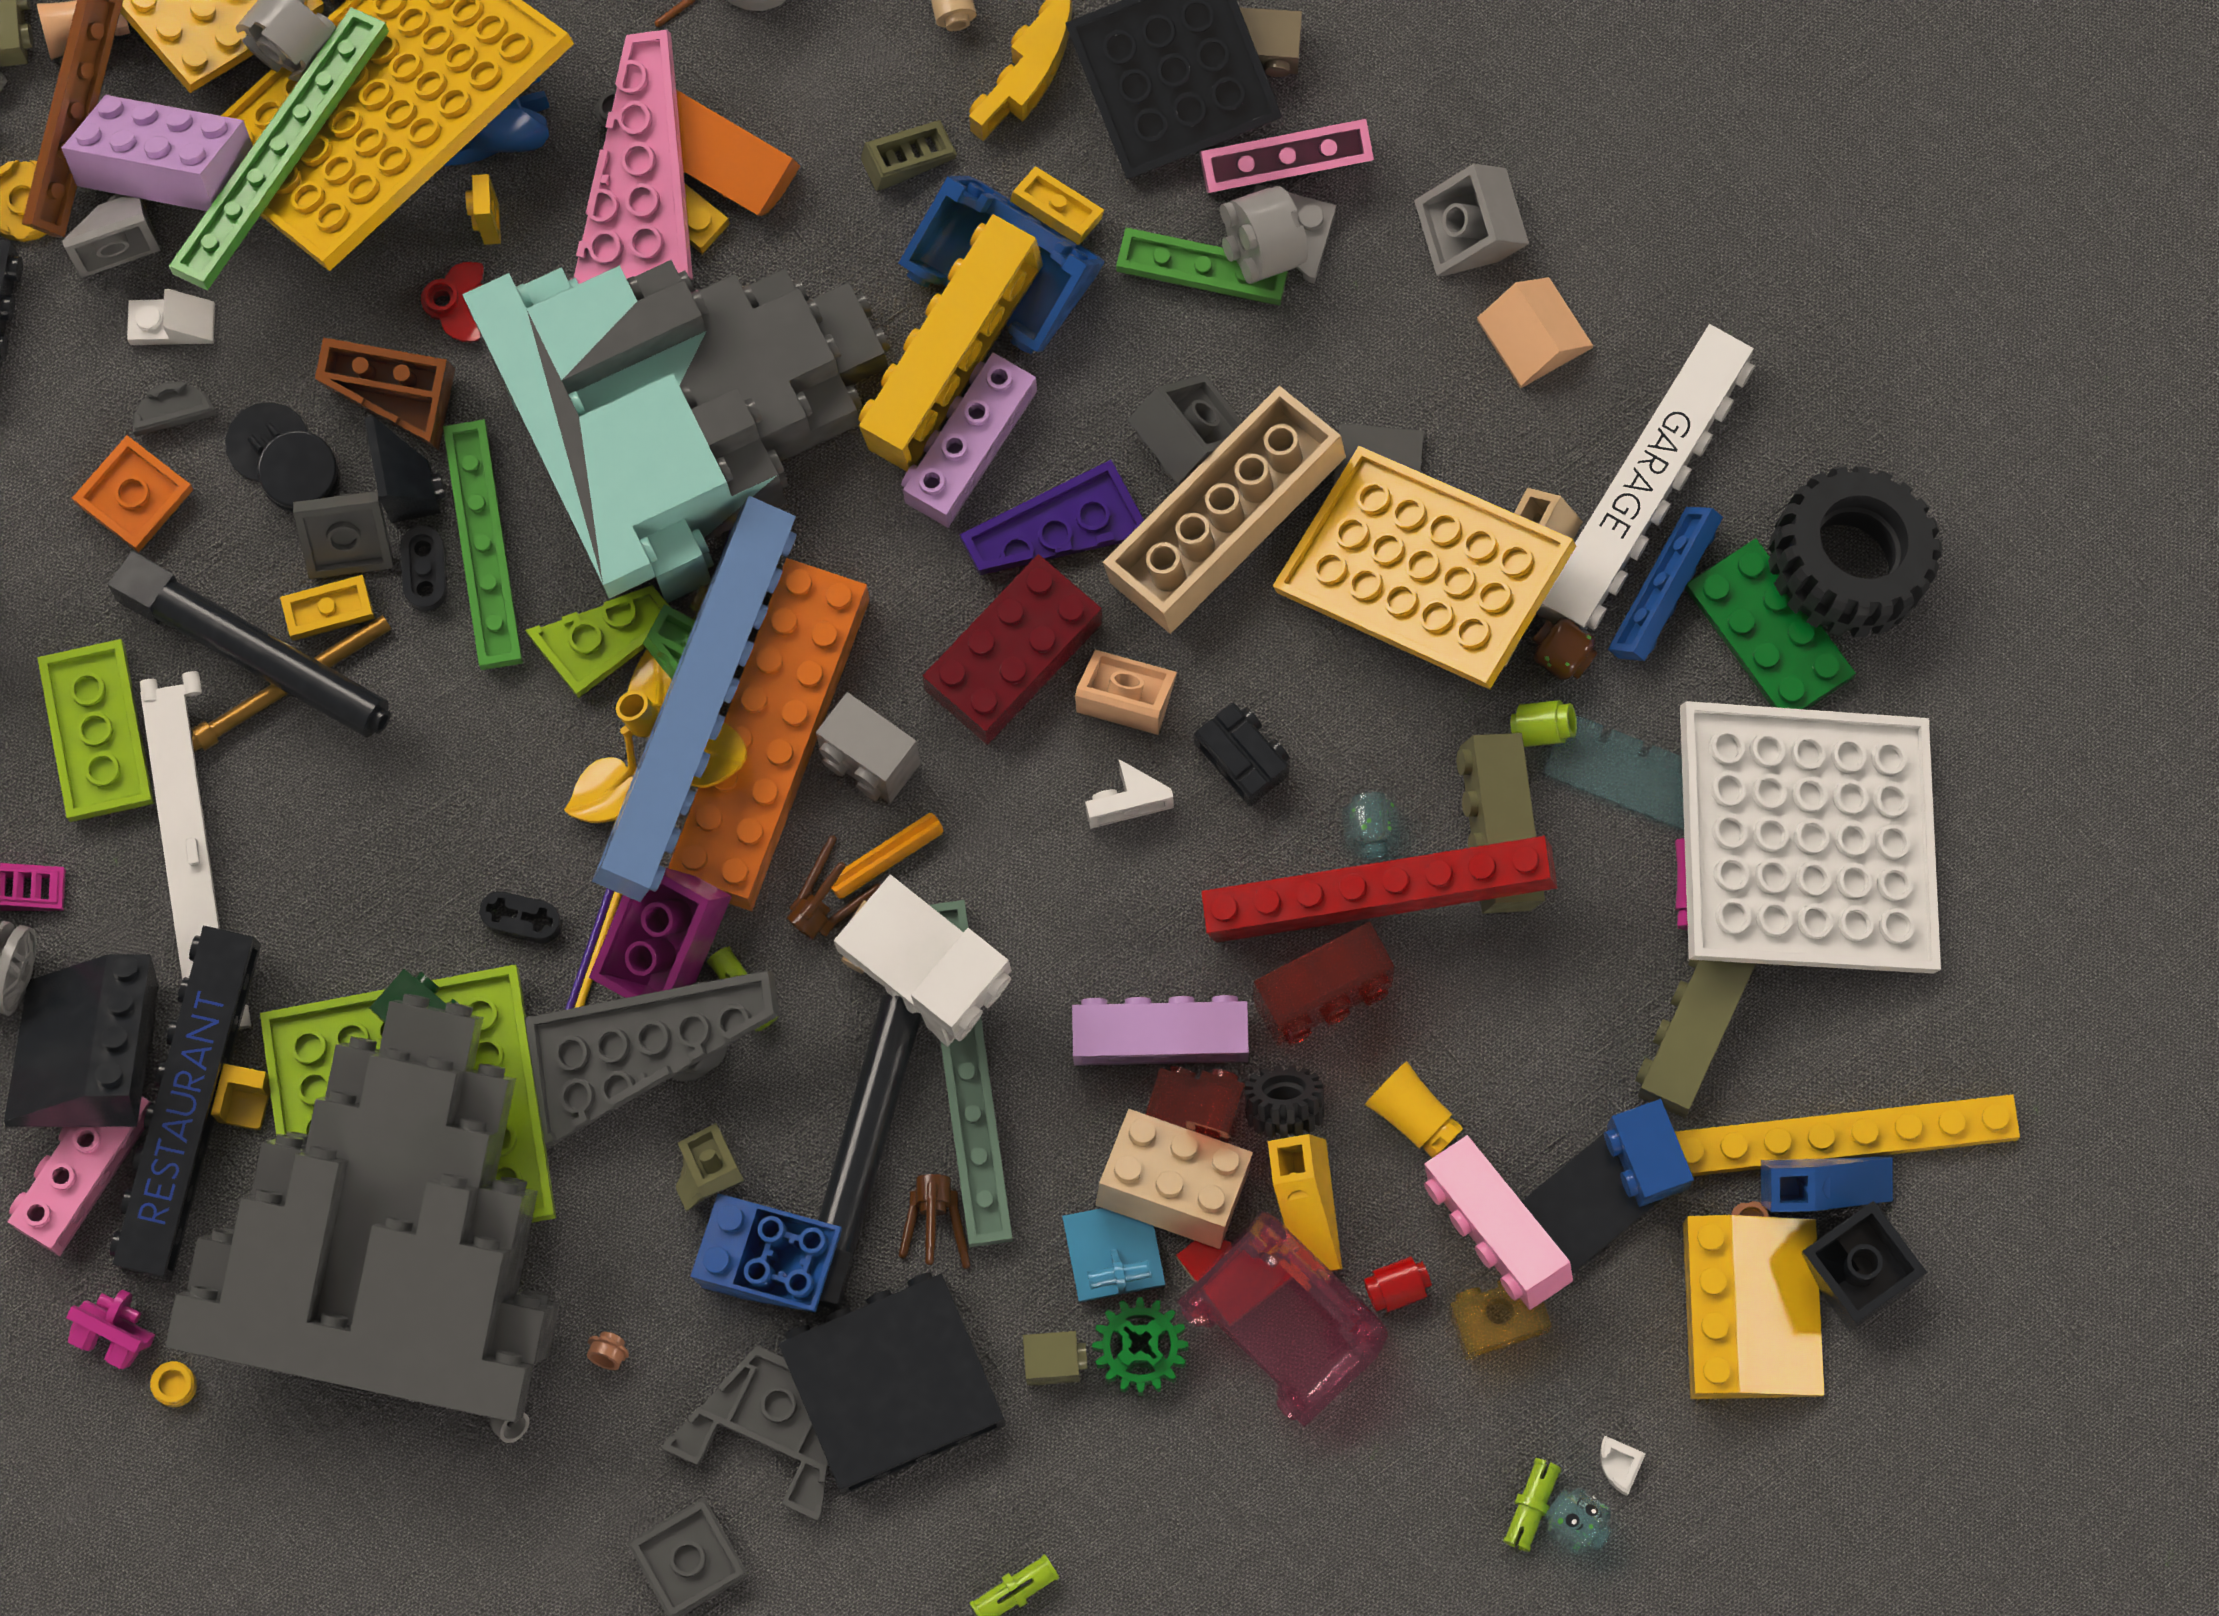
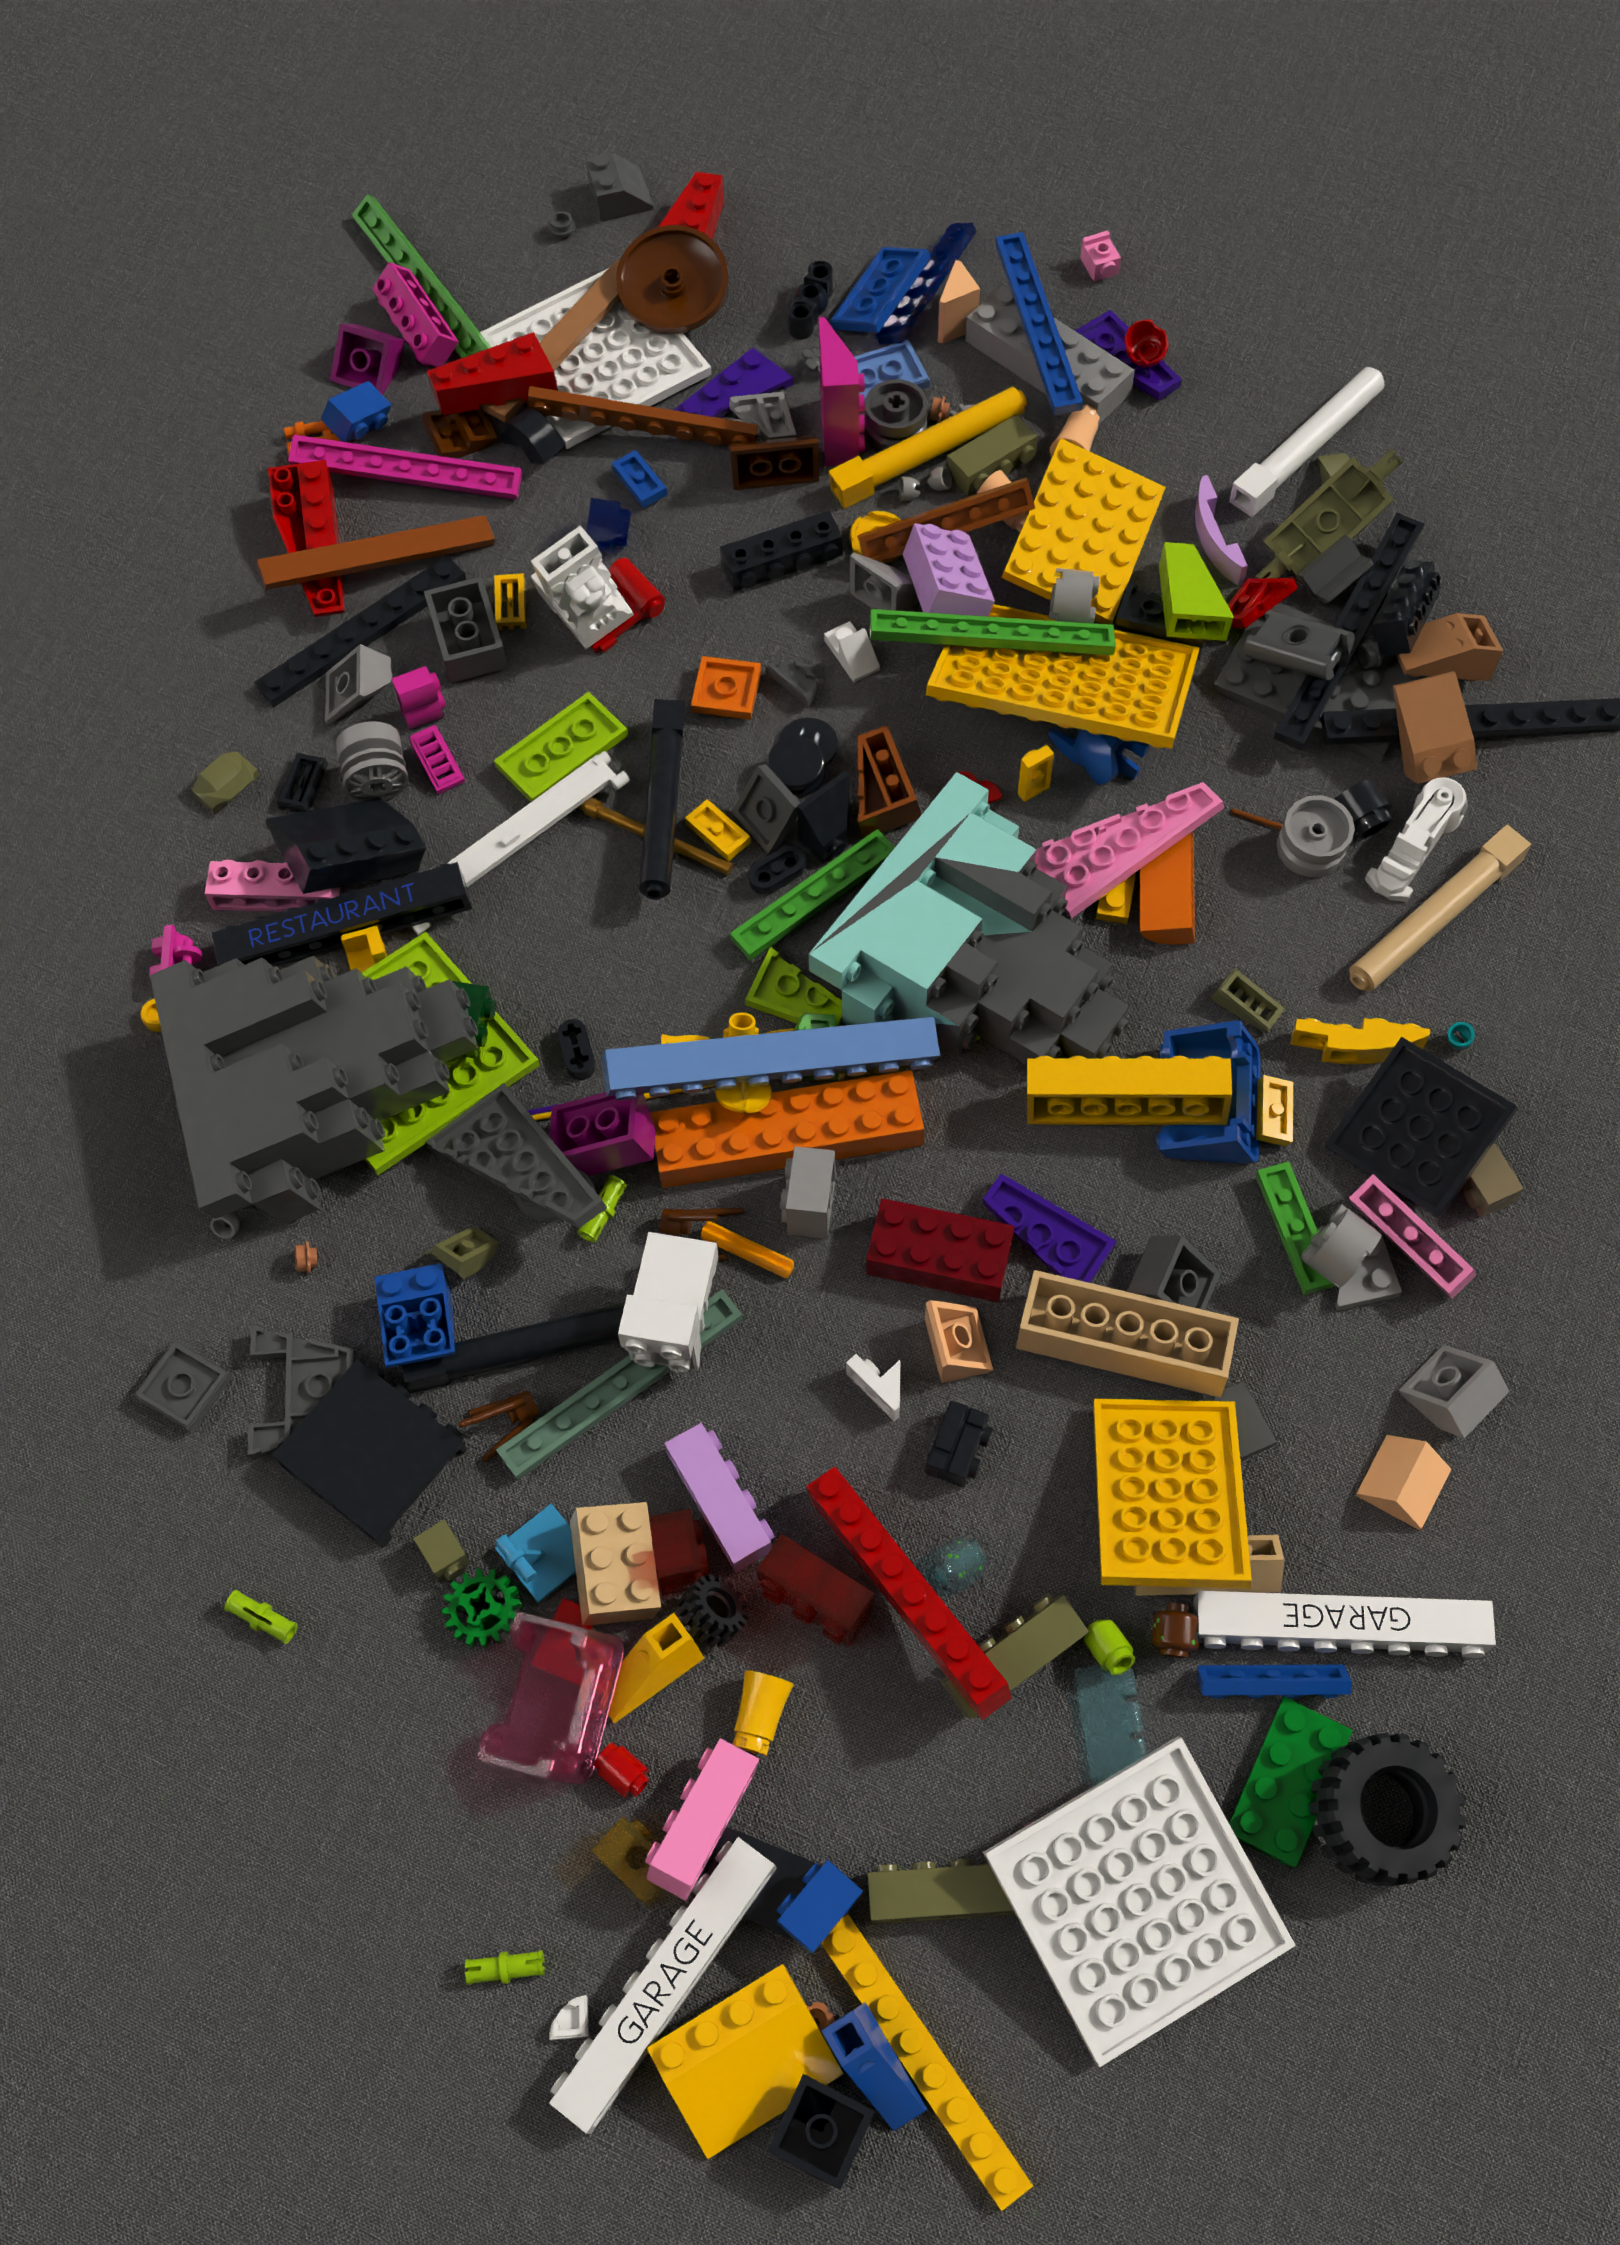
camera: 60 degrees right, 10 degrees down
(969, 439) = (1072, 1144): lavender brick -> none
(1579, 1521) = (506, 2010): clear light blue head -> none
(1638, 1350) = (662, 1986): none -> white brick

